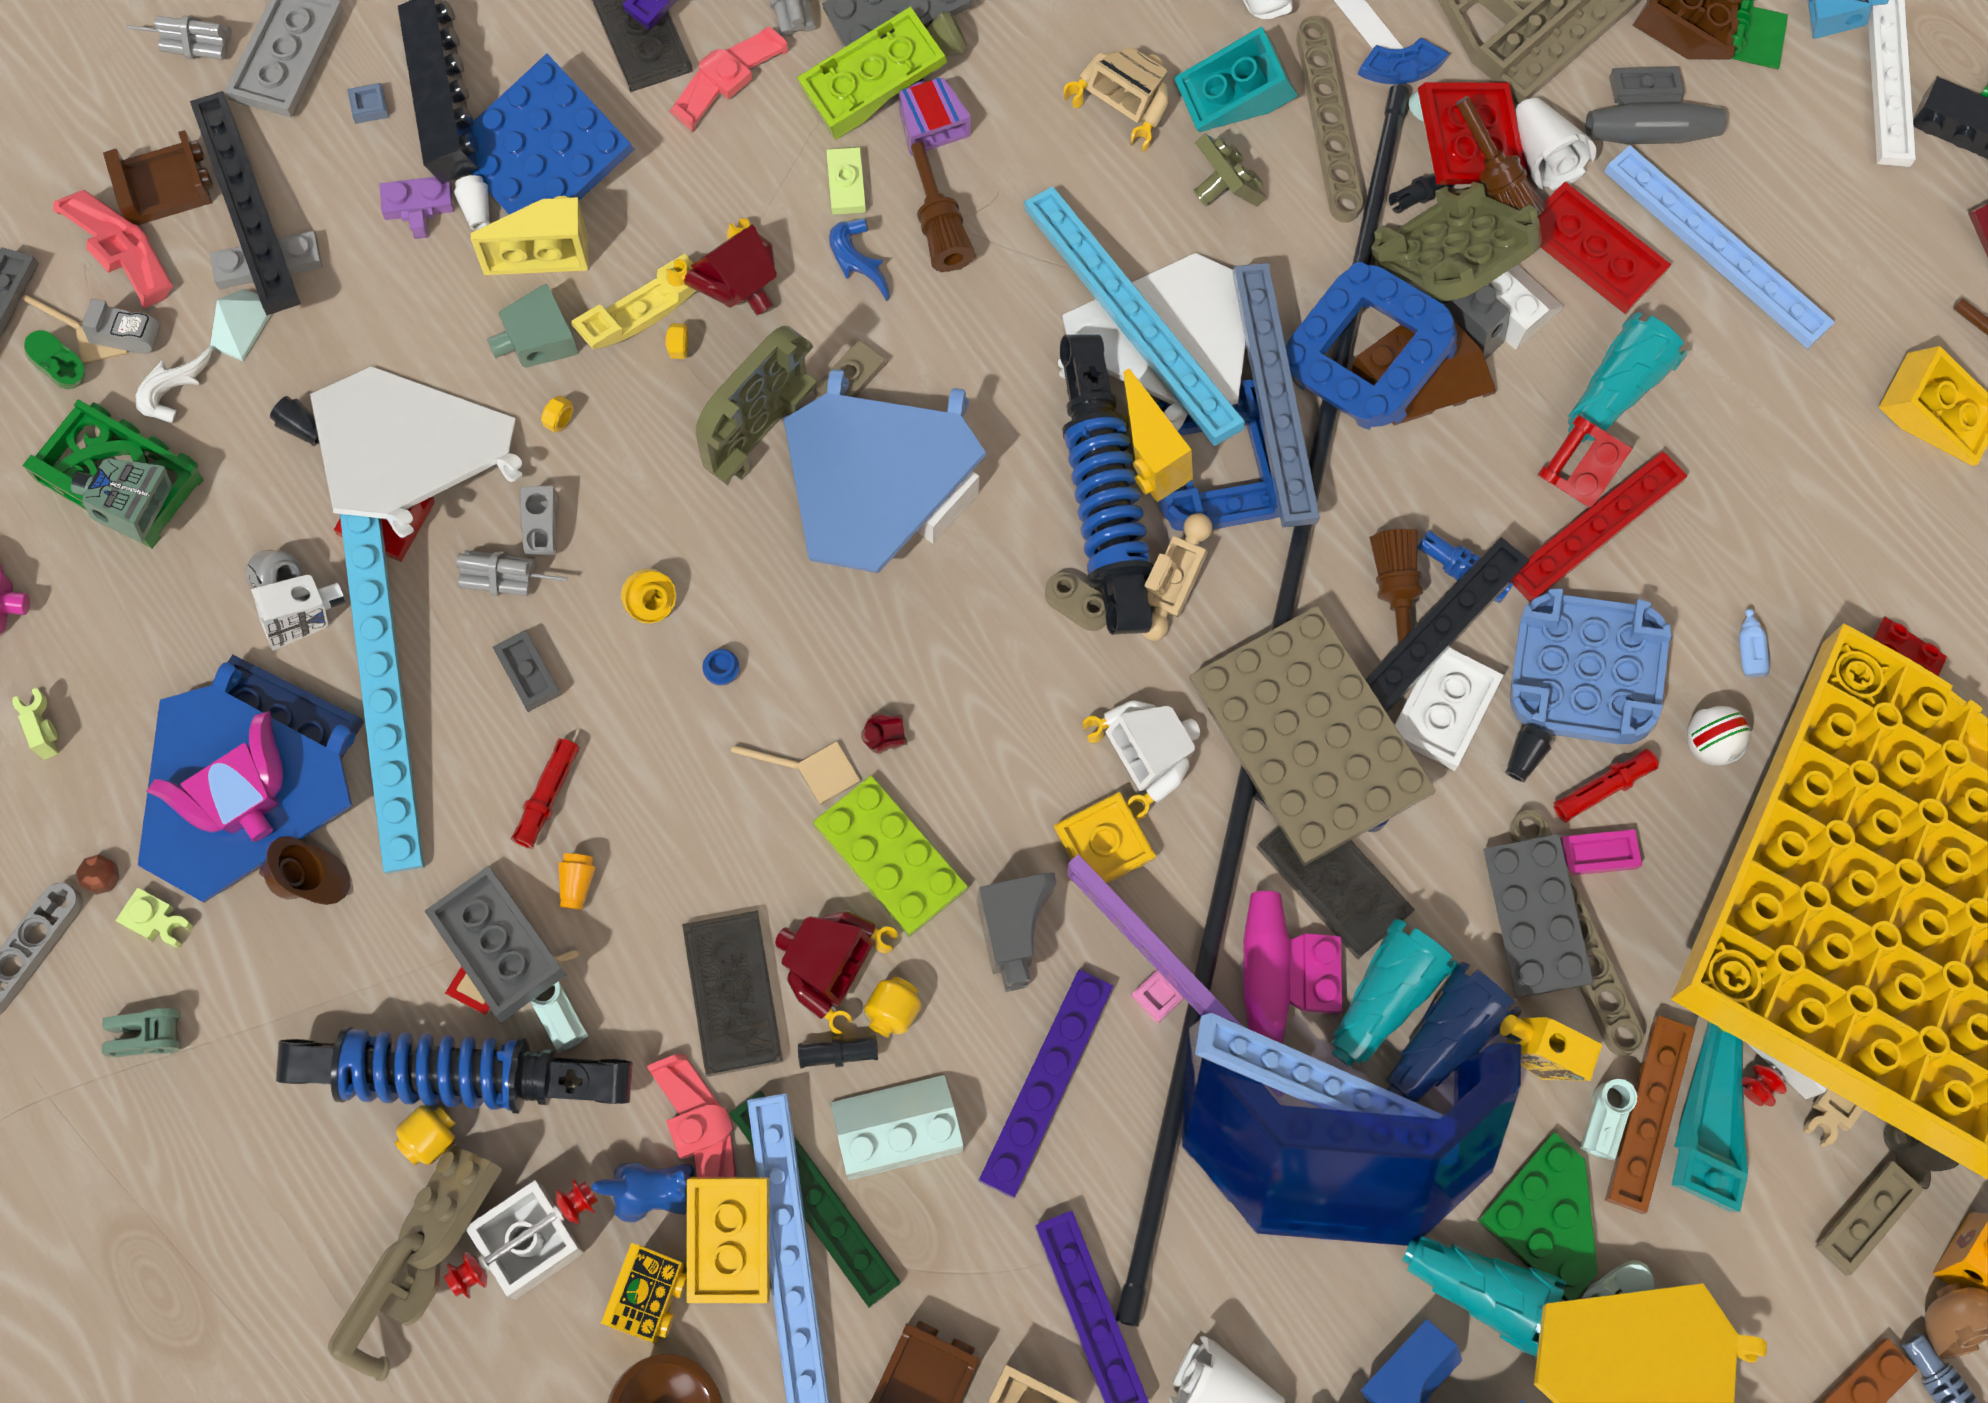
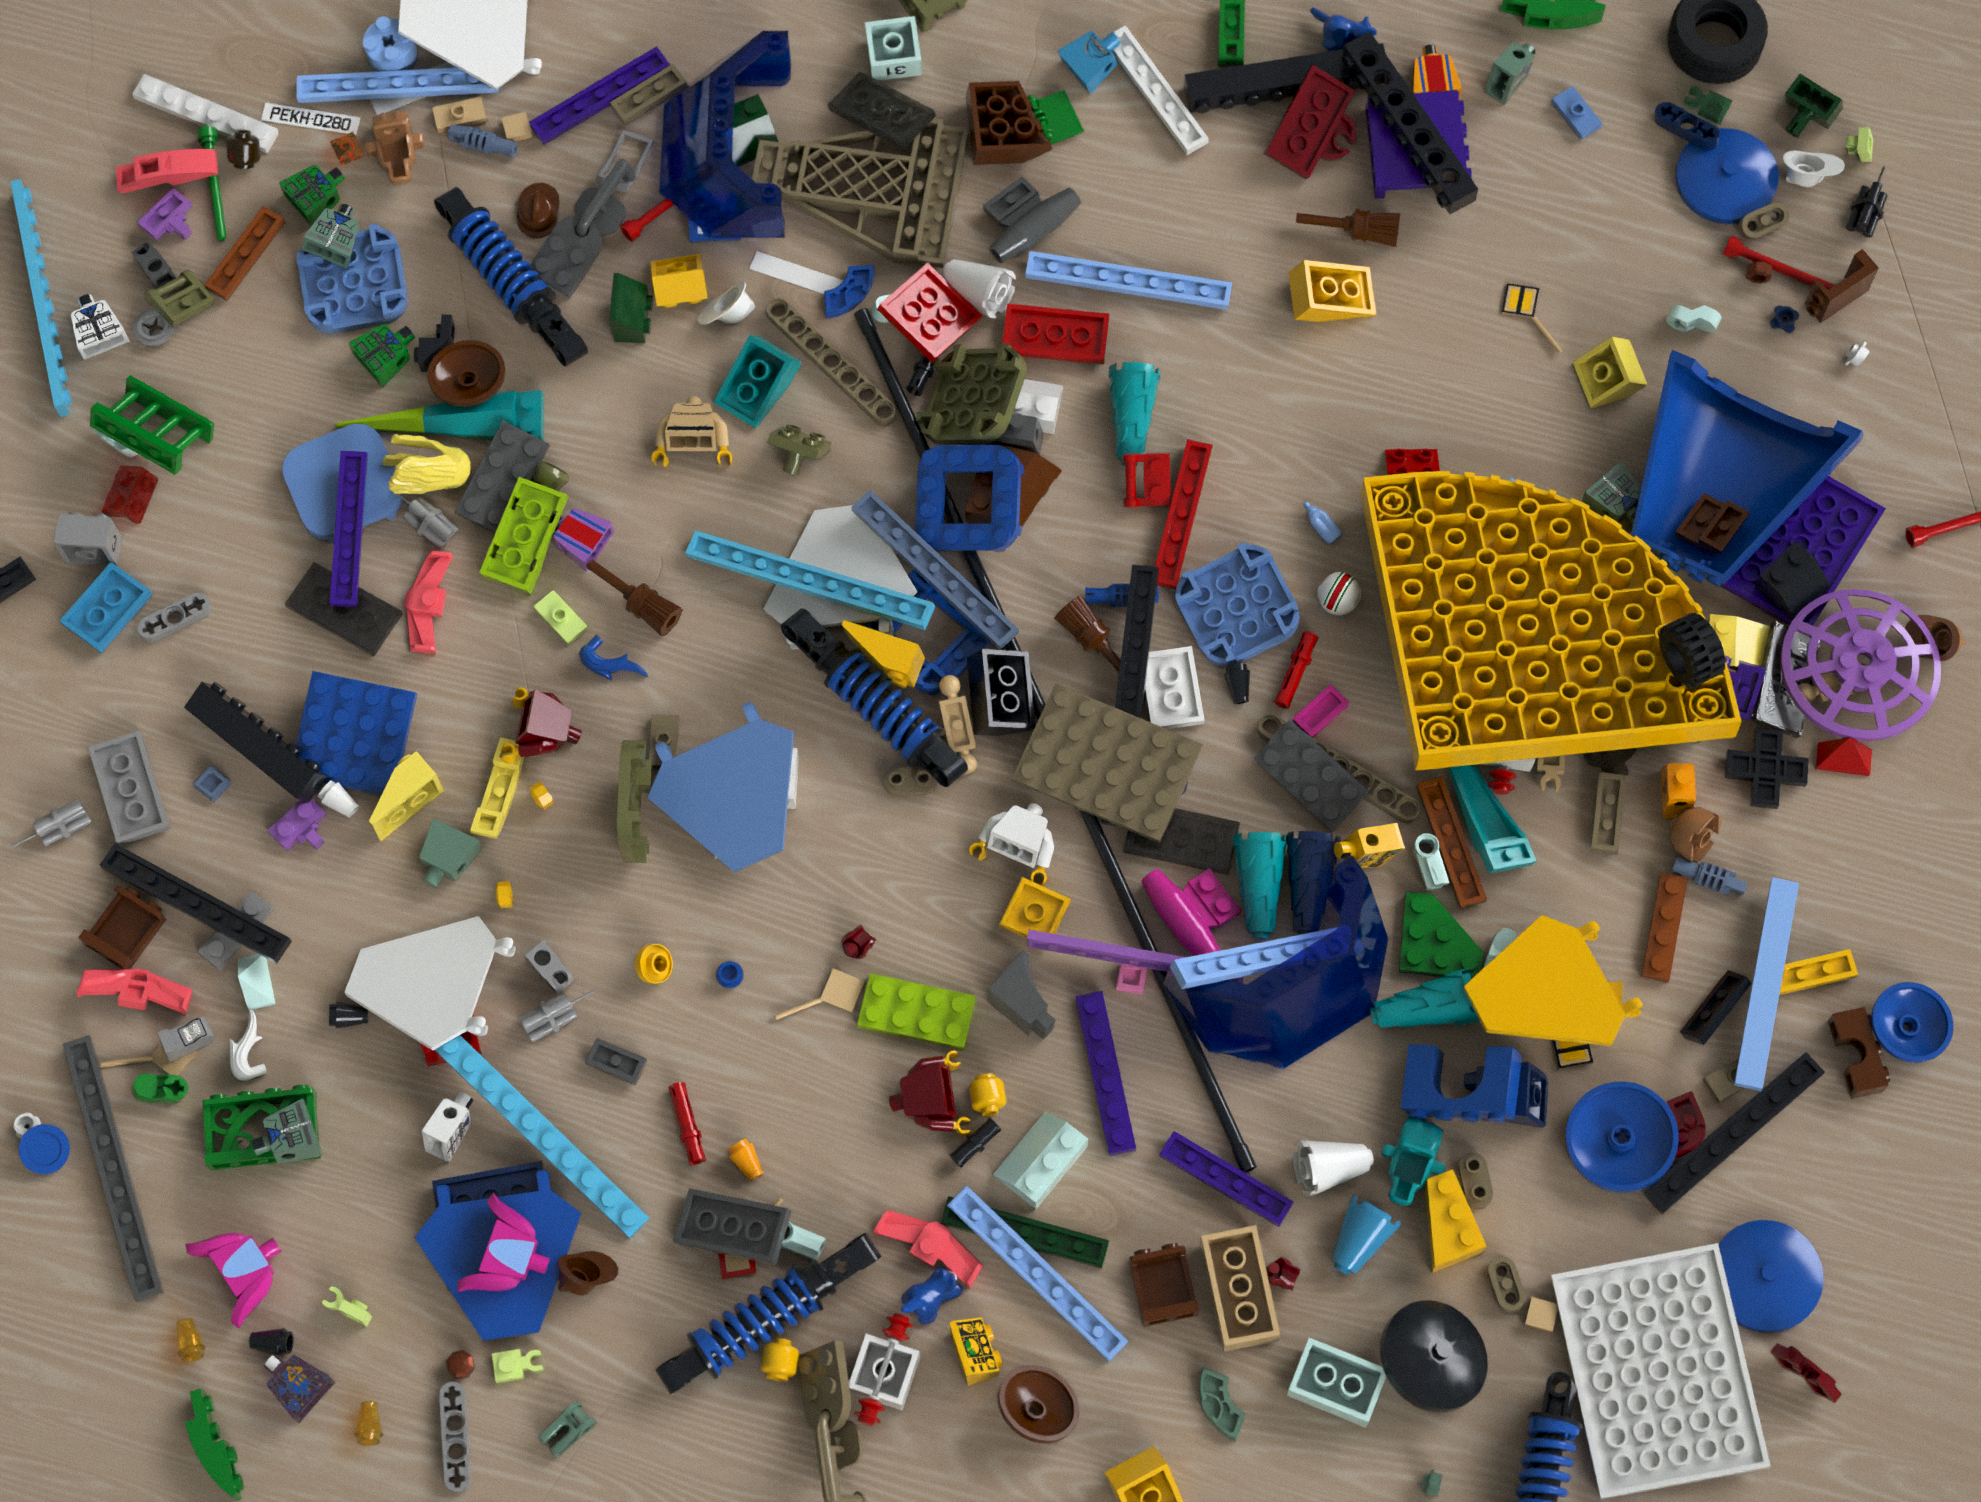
camera: 30 degrees left, 0 degrees up
(272, 567) = (414, 1114): light grey head -> none
(728, 1240) = (997, 1287): yellow plate -> none
(732, 993) = (888, 1155): clear smoke tile -> none
(1161, 575) = (951, 730): tan tile -> none
(1249, 574) = (1000, 692): none -> black slope
(1502, 174) = (968, 329): reddish brown piece -> none

